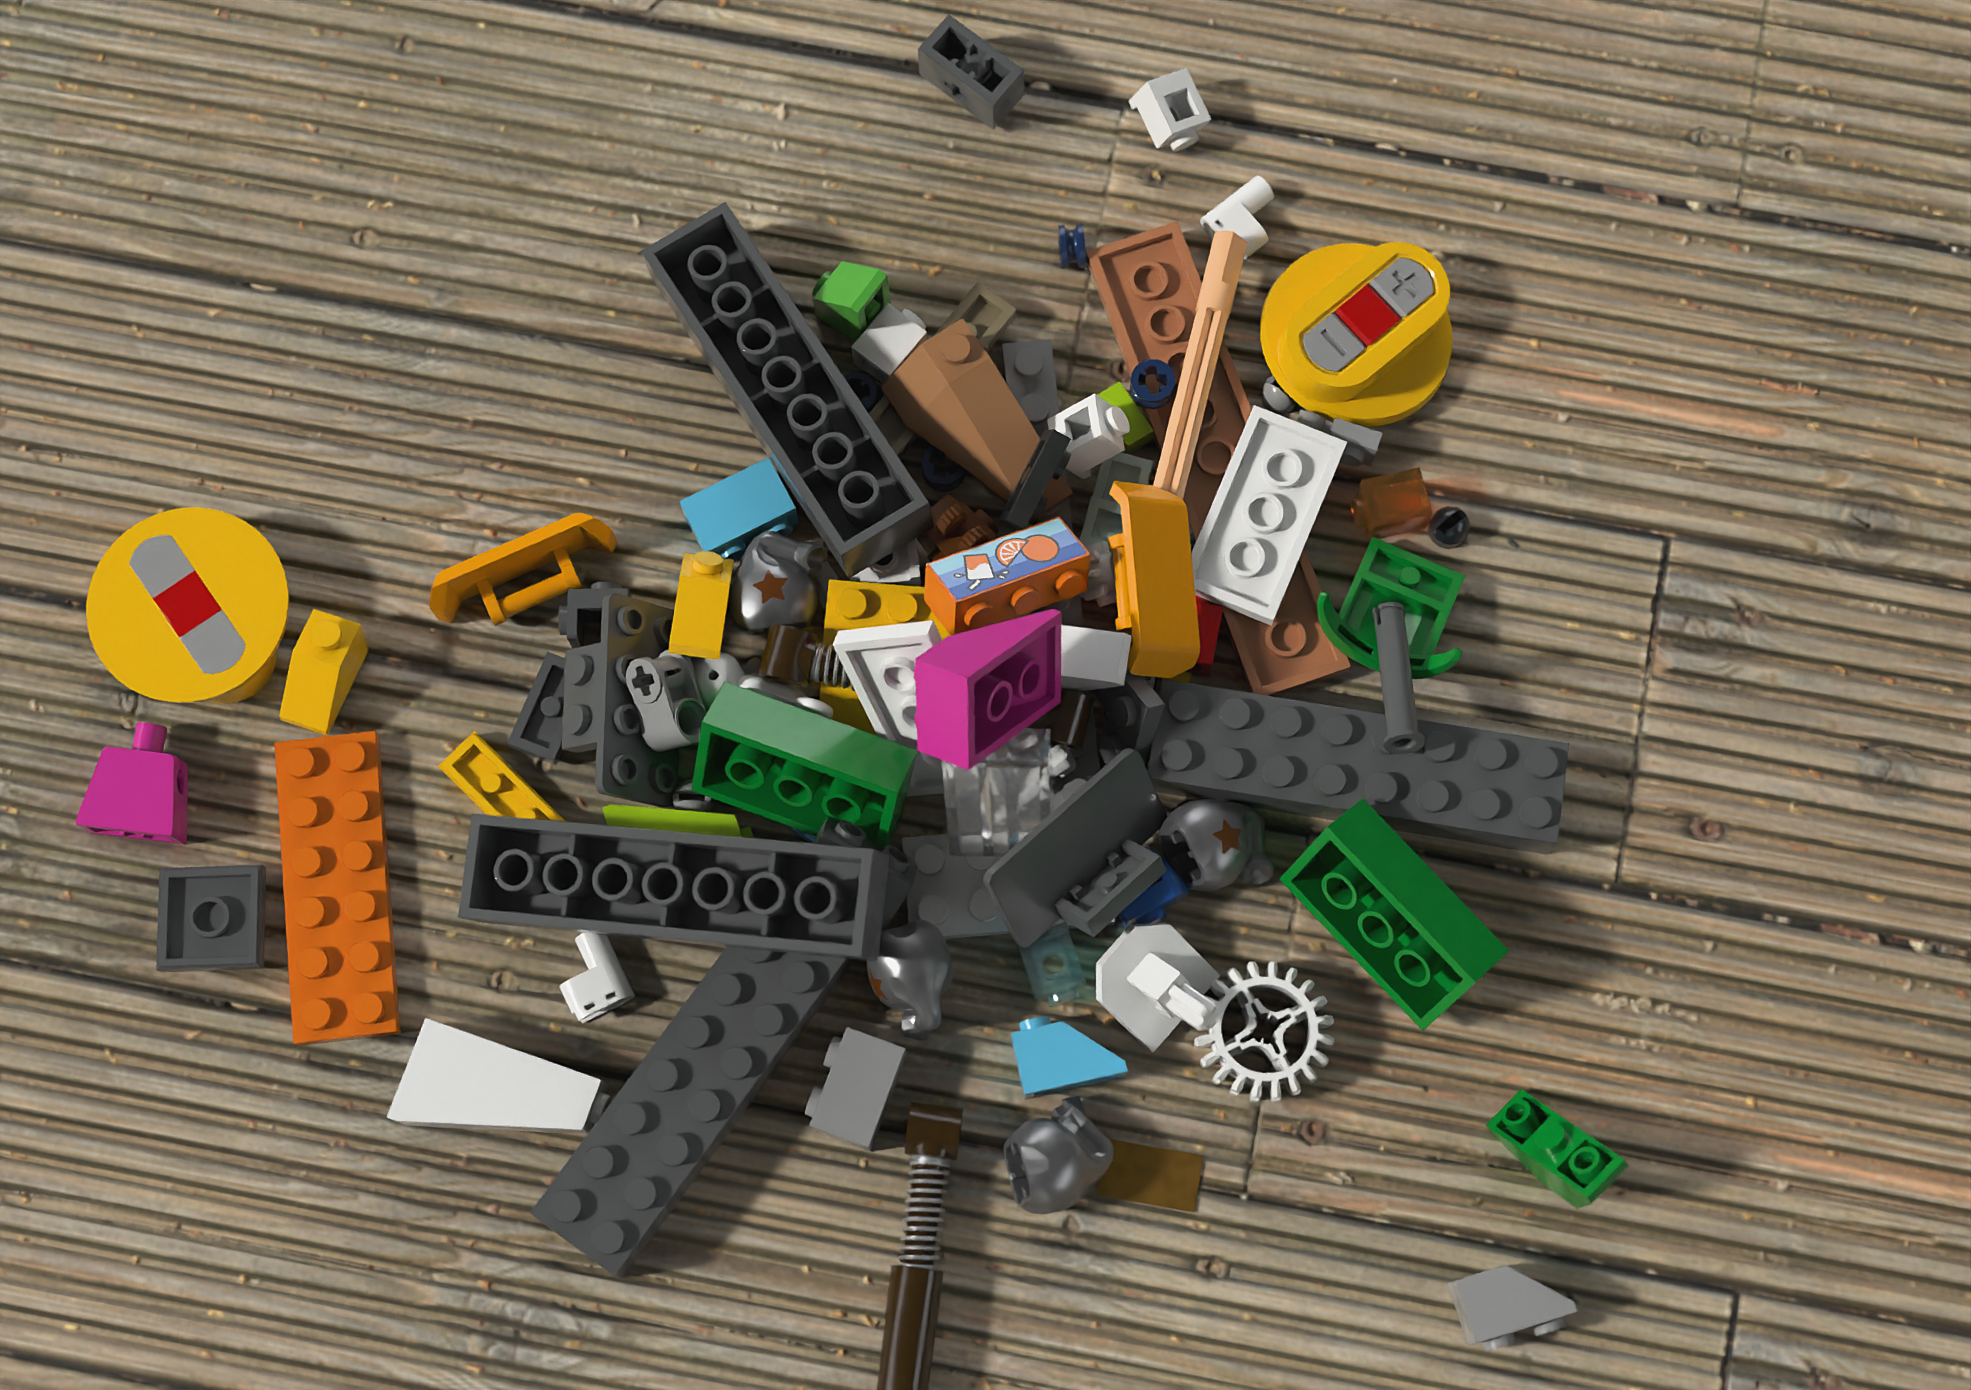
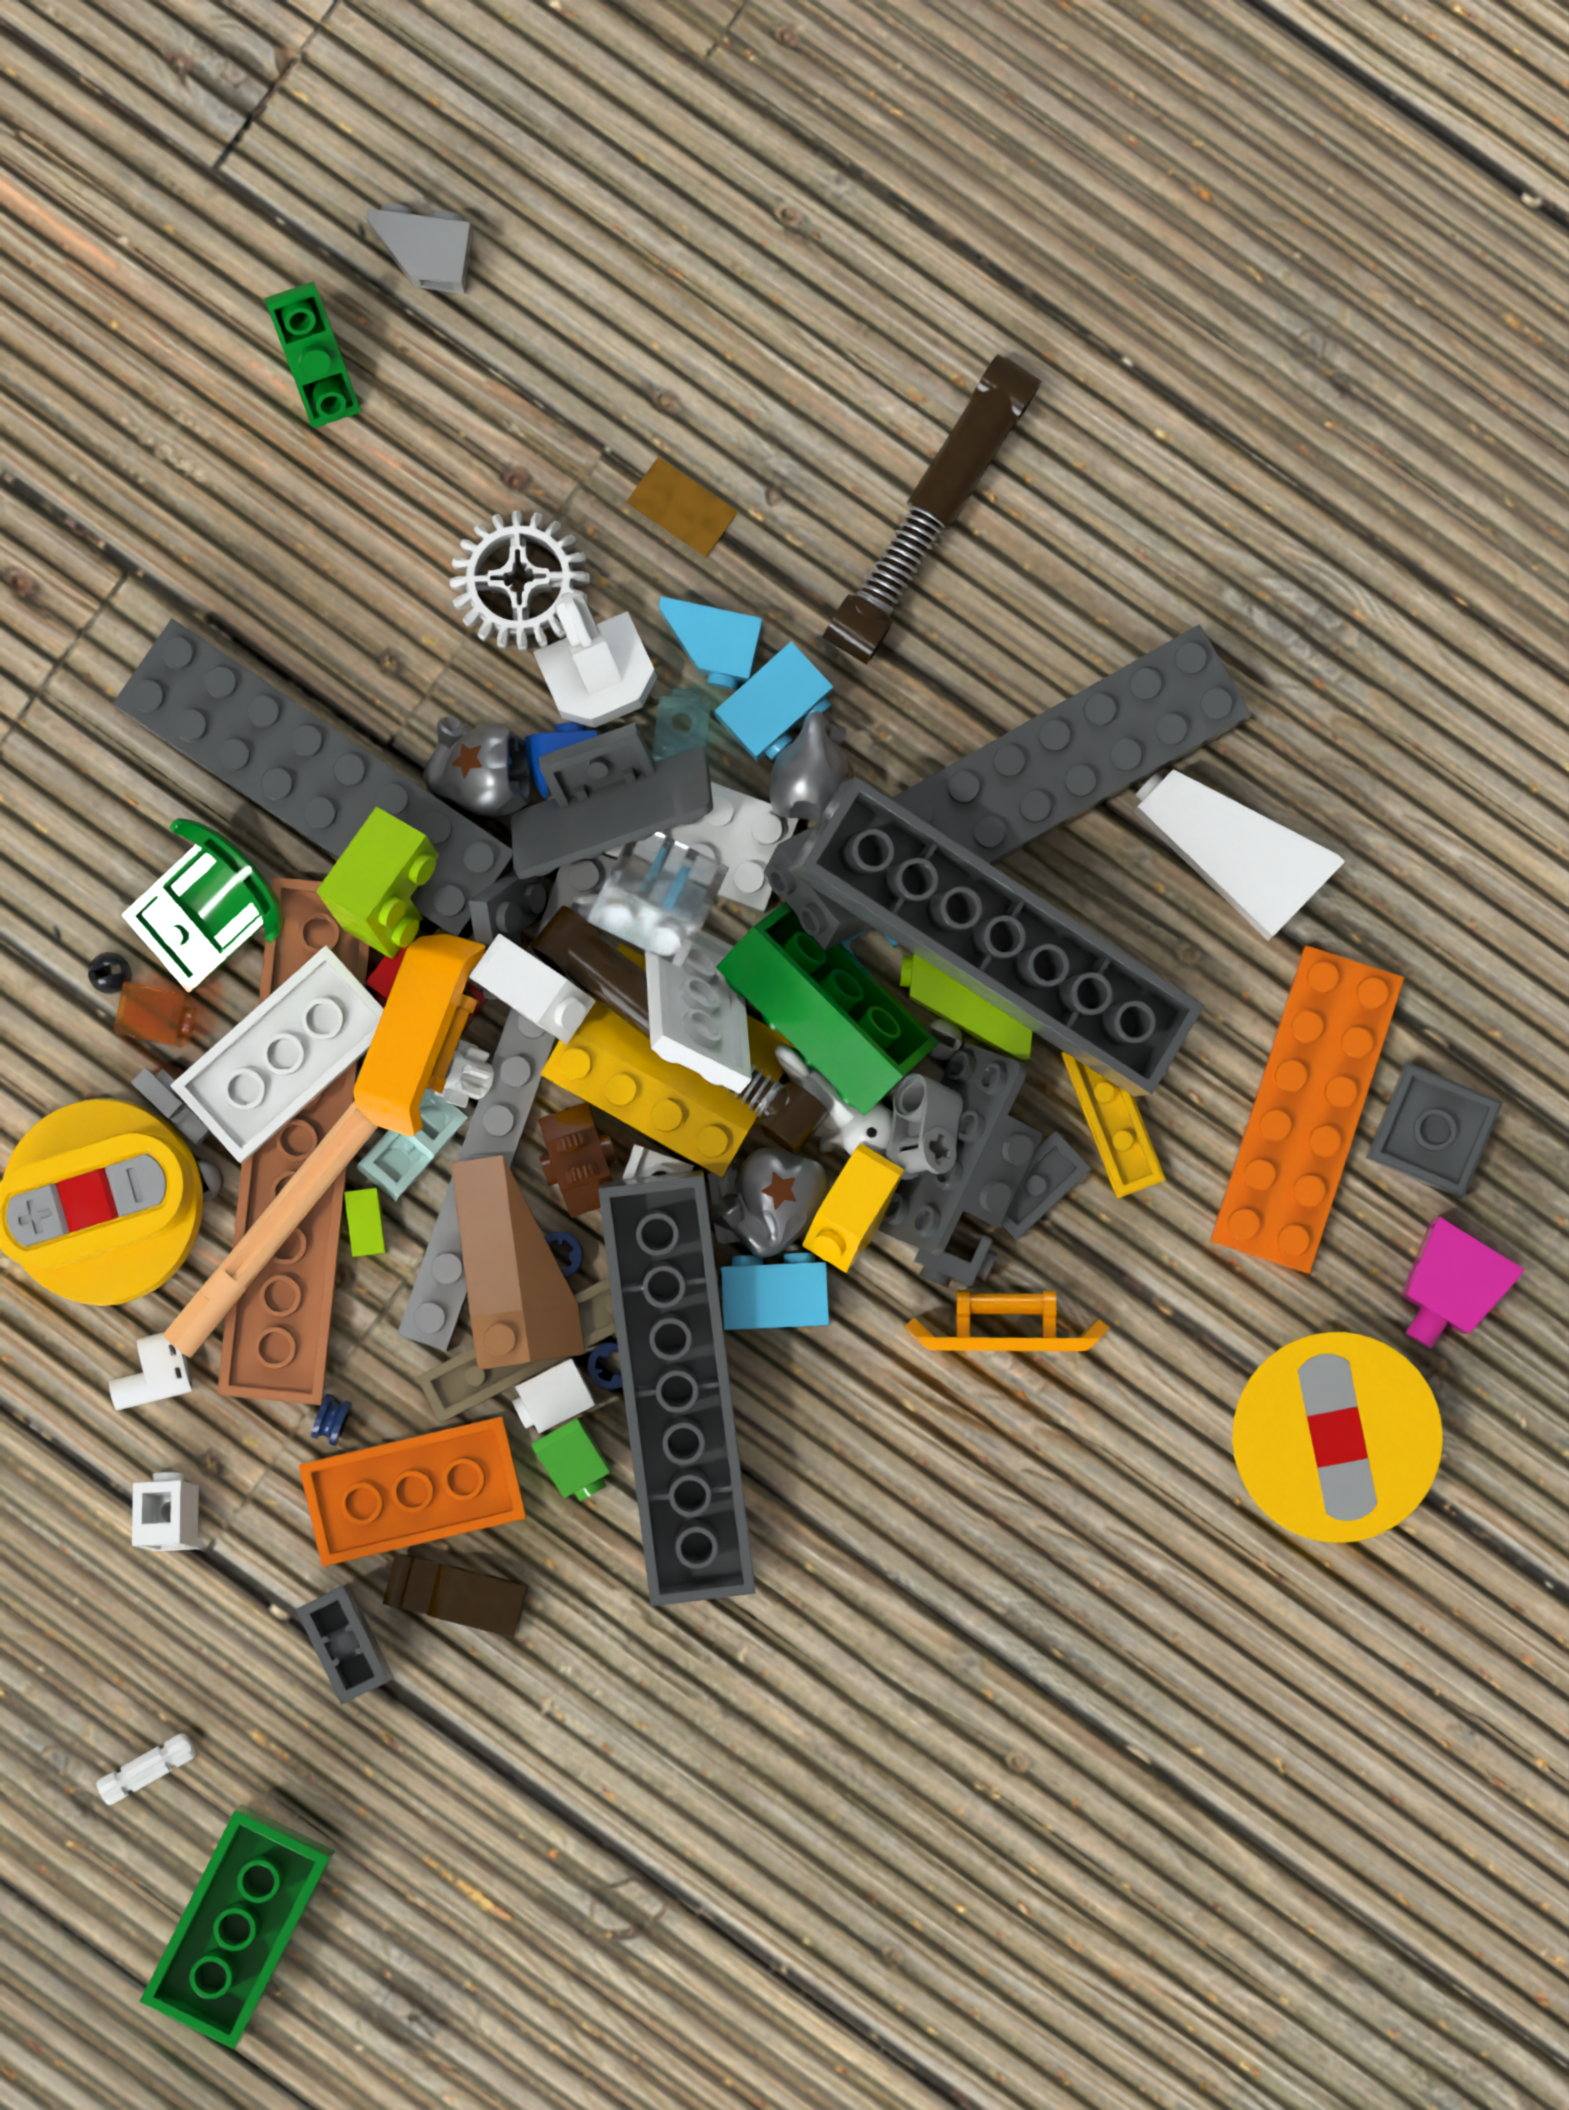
camera: 155 degrees left, 10 degrees up
(322, 671) = (1237, 1315): yellow slope -> none
(602, 985) = (1105, 903): white piece -> none
(856, 1089) = (910, 698): light grey brick -> none
(895, 155) = (456, 1594): none -> dark brown piece
(974, 221) = (412, 1491): none -> orange plate
(977, 1027) = (775, 703): none -> medium azure brick
(987, 686) = (630, 971): dark pink slope -> none
(1007, 577) = (556, 1091): brick -> none
(1027, 498) = (470, 1190): pearl dark grey plate -> none
(1056, 1159) = (759, 552): flat silver piece -> none
(1094, 432) = (410, 1211): white brick -> none
(1163, 374) = (309, 1242): dark blue bush -> none
(1254, 685) = (374, 882): none -> lime brick
(1393, 914) = (352, 623): green brick -> none
(1396, 680) = (241, 834): dark grey pin -> none

